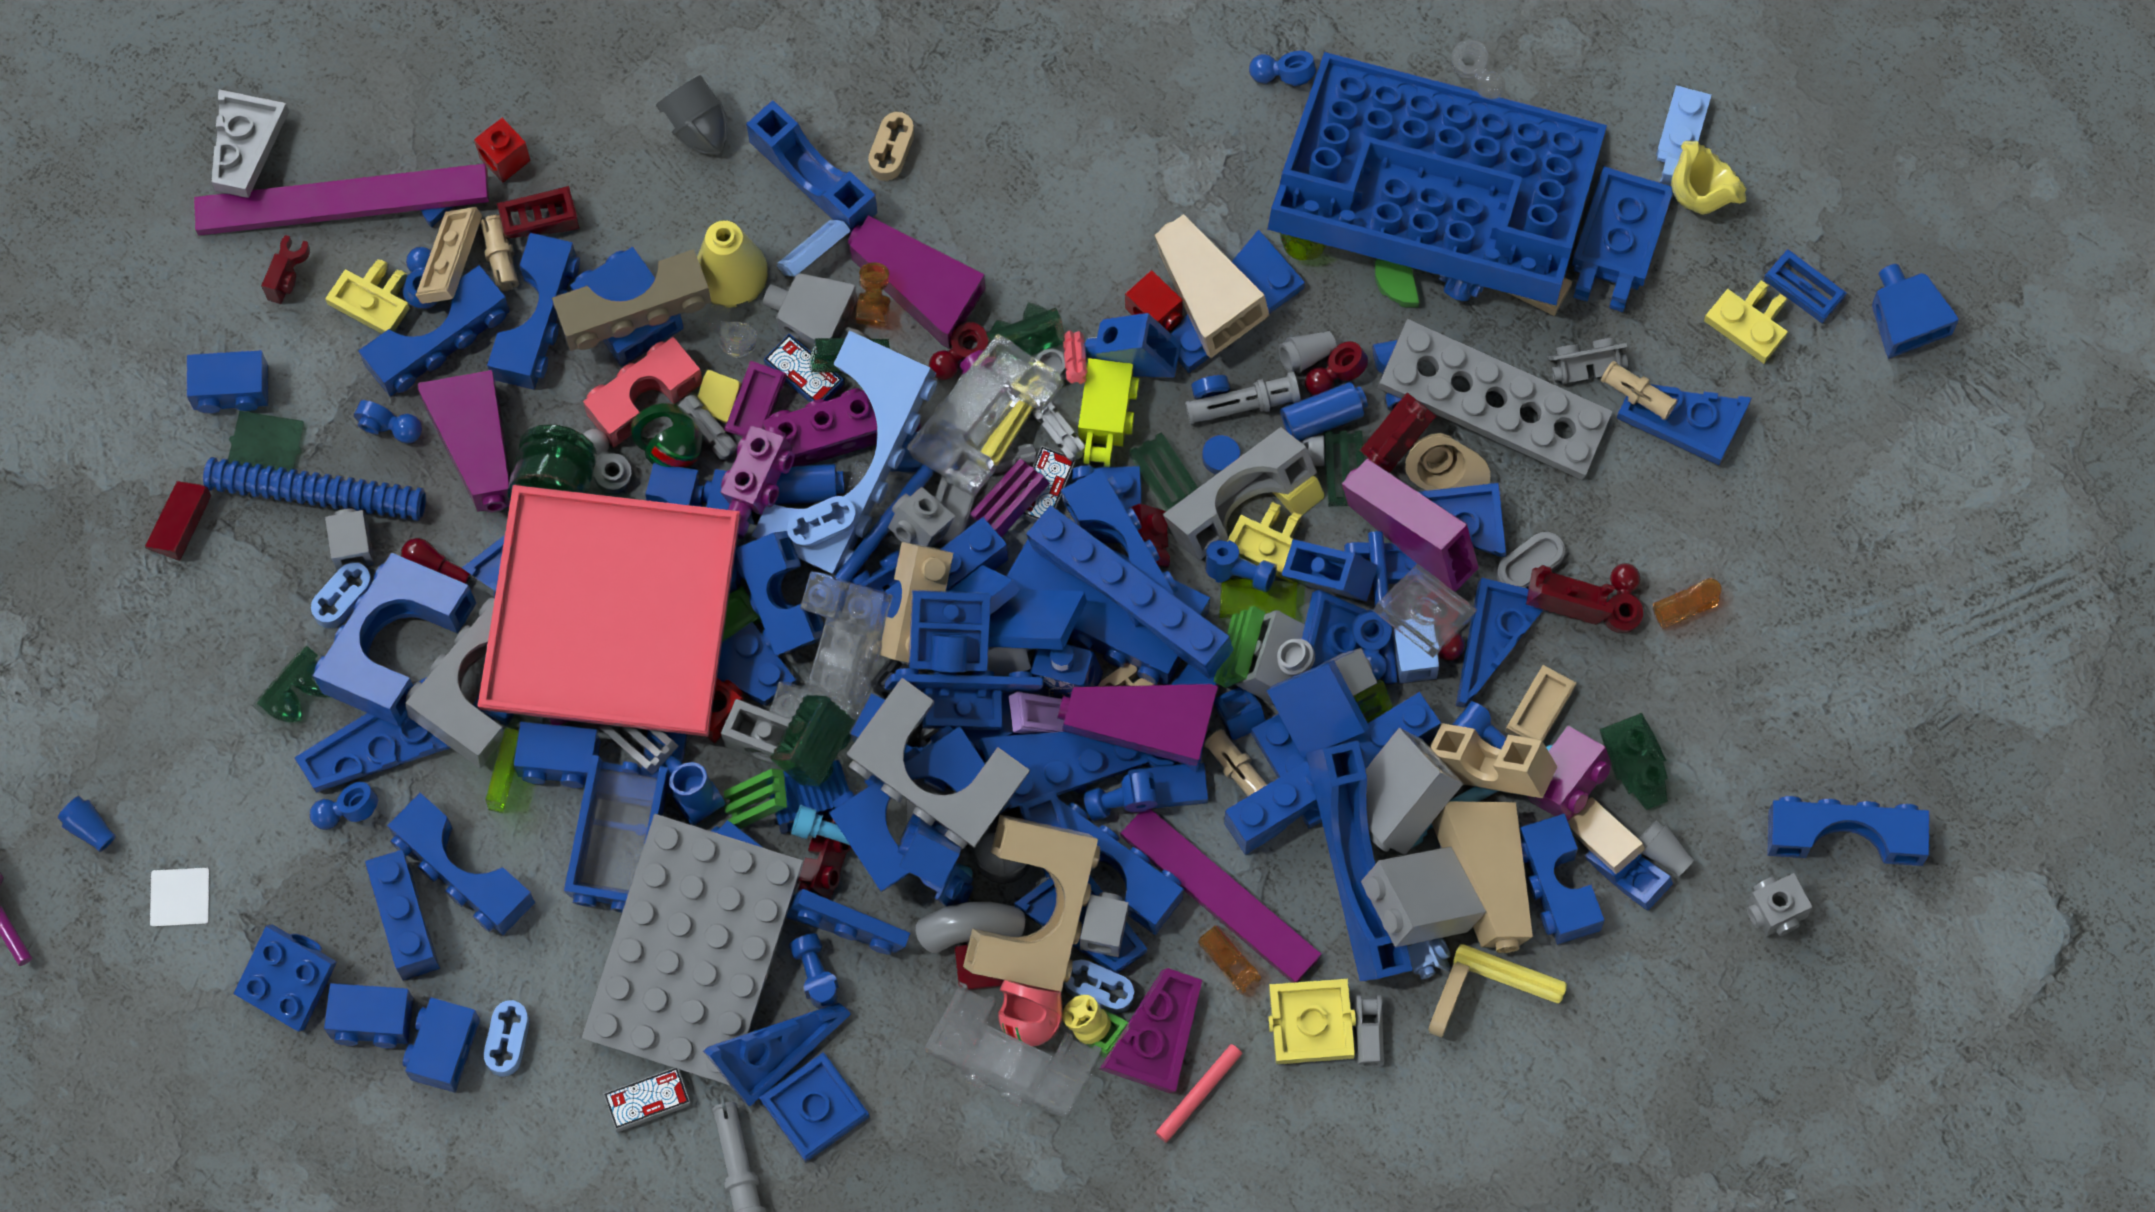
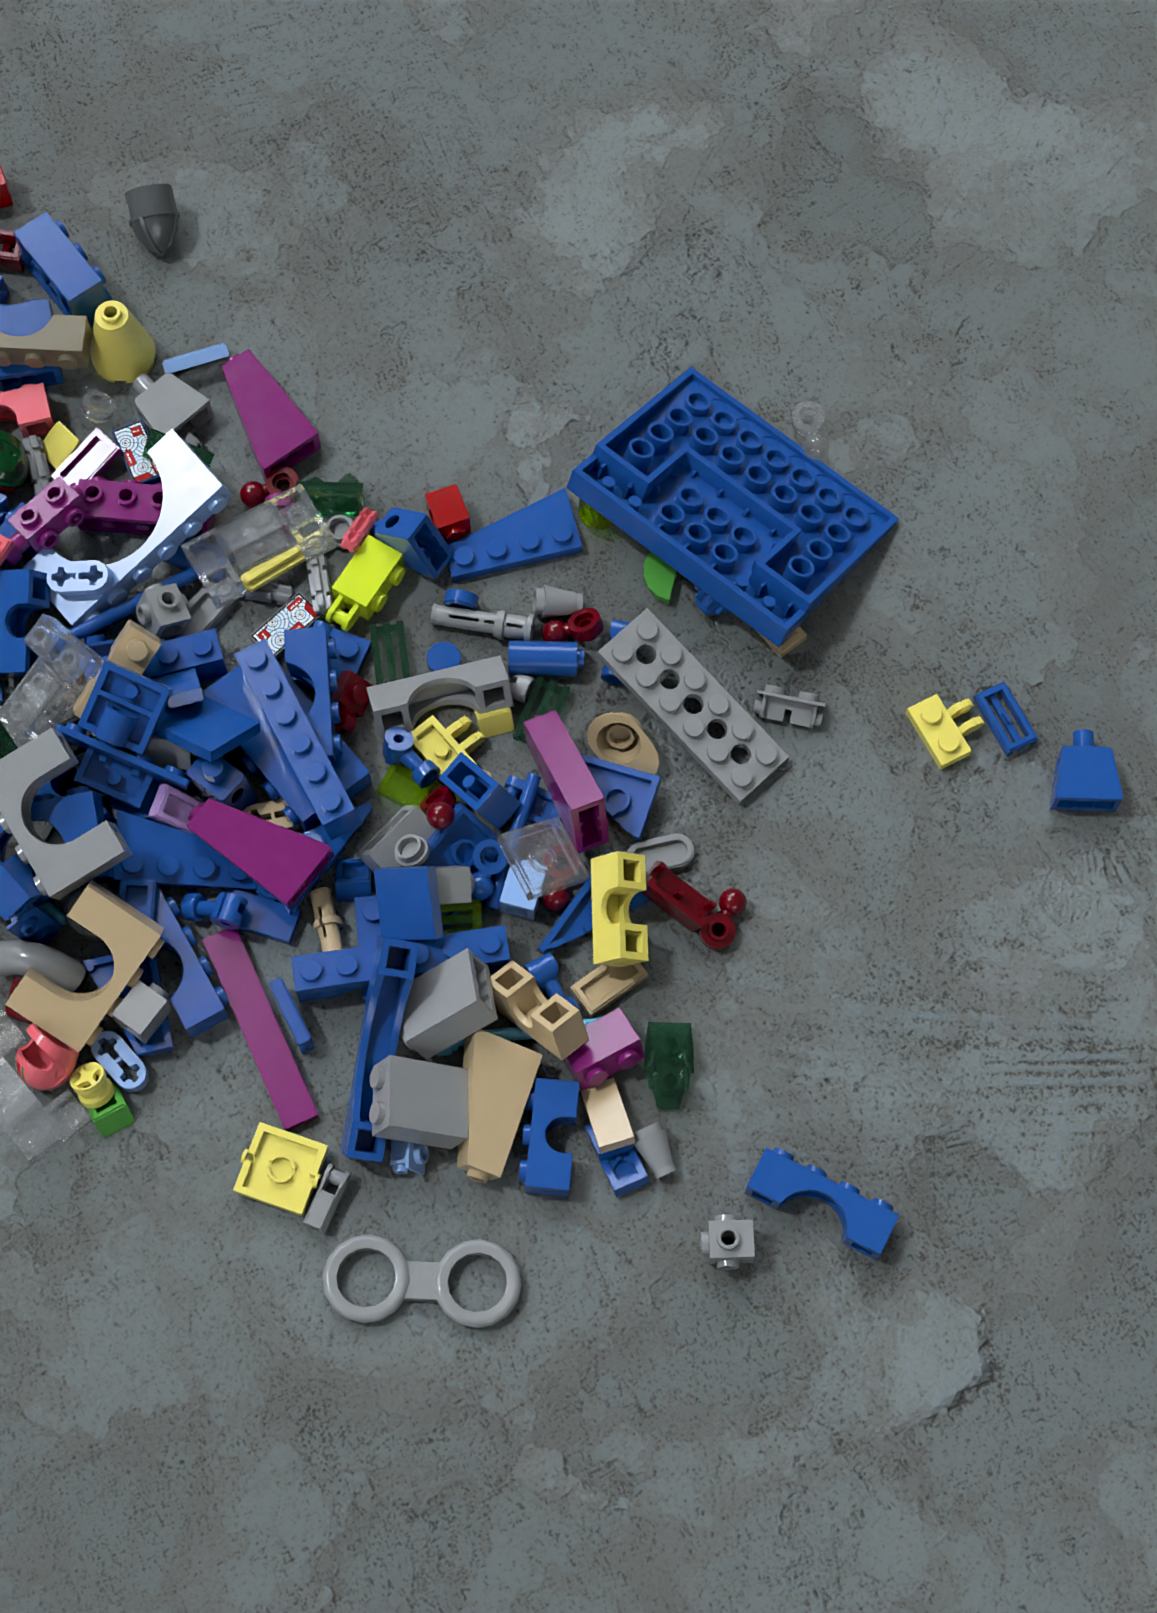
camera: 20 degrees right, 0 degrees up
(633, 210) = (61, 267): none -> brick
(788, 149) = (223, 293): blue arch -> none
(809, 484) = (91, 544): blue brick -> none
(873, 306) = (217, 423): clear orange leg -> none
(884, 143) = (304, 307): tan beam -> none
(1005, 495) = (250, 624): magenta tile -> none
(1157, 1034) = (145, 1123): magenta wing -> none
(1198, 1093) = (157, 1189): coral bar -> none
(1213, 290) = (497, 521): tan slope -> none
(1225, 956) = (238, 1081): clear orange bar -> none
(1244, 634) = (375, 824): bright green tile -> none
(1247, 869) = (291, 1015): none -> blue tile
(1294, 68) = (657, 369): blue plate -> none
(1296, 602) = (439, 807): none -> dark red plate
(1397, 433) = (595, 700): dark red hinge -> none
(1448, 999) = (405, 1200): tan tile -> none
(1500, 1069) = (422, 1281): none -> light grey bar
(1507, 608) = (613, 884): none -> light yellow arch
(1511, 973) = (471, 1201): light yellow axle -> none
(1620, 234) = (866, 612): blue tile -> none
(1639, 390) = (817, 747): tan pin -> none
(1682, 124) = (960, 548): light blue hinge -> none
(1687, 603) = (775, 945): clear orange bar -> none
(1696, 424) = (850, 790): blue wing -> none
(1704, 181) = (957, 594): light yellow hair -> none

